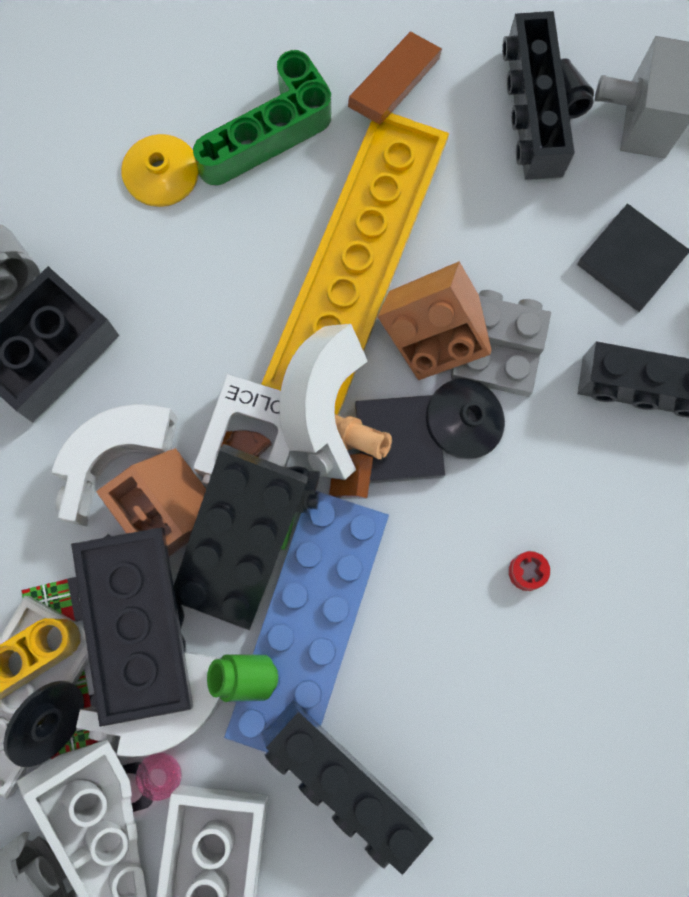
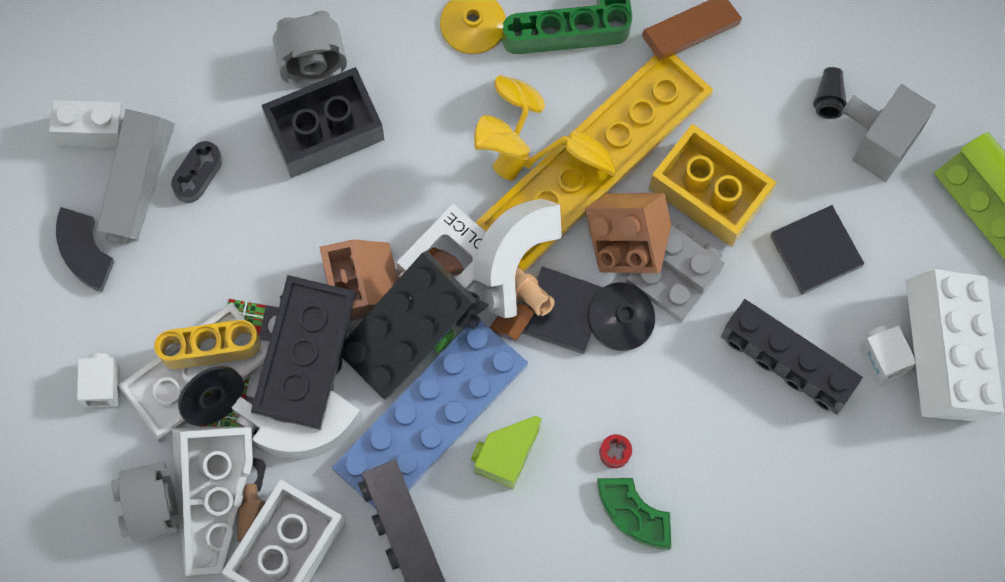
camera: 25 degrees right, 5 degrees down
(98, 443) = (335, 214): white arch -> none
(151, 834) = (248, 510): none -> medium nougat bar
(169, 766) = (267, 462): clear pink plate -> none
(242, 677) = (366, 424): bright green brick -> none
(245, 275) = (514, 153): none -> yellow plant
(414, 629) = (506, 451): none -> lime slope
(500, 233) = (712, 185): none -> yellow brick
(539, 96) = (799, 87): black brick -> none
(580, 634) = (633, 515): none -> green tile

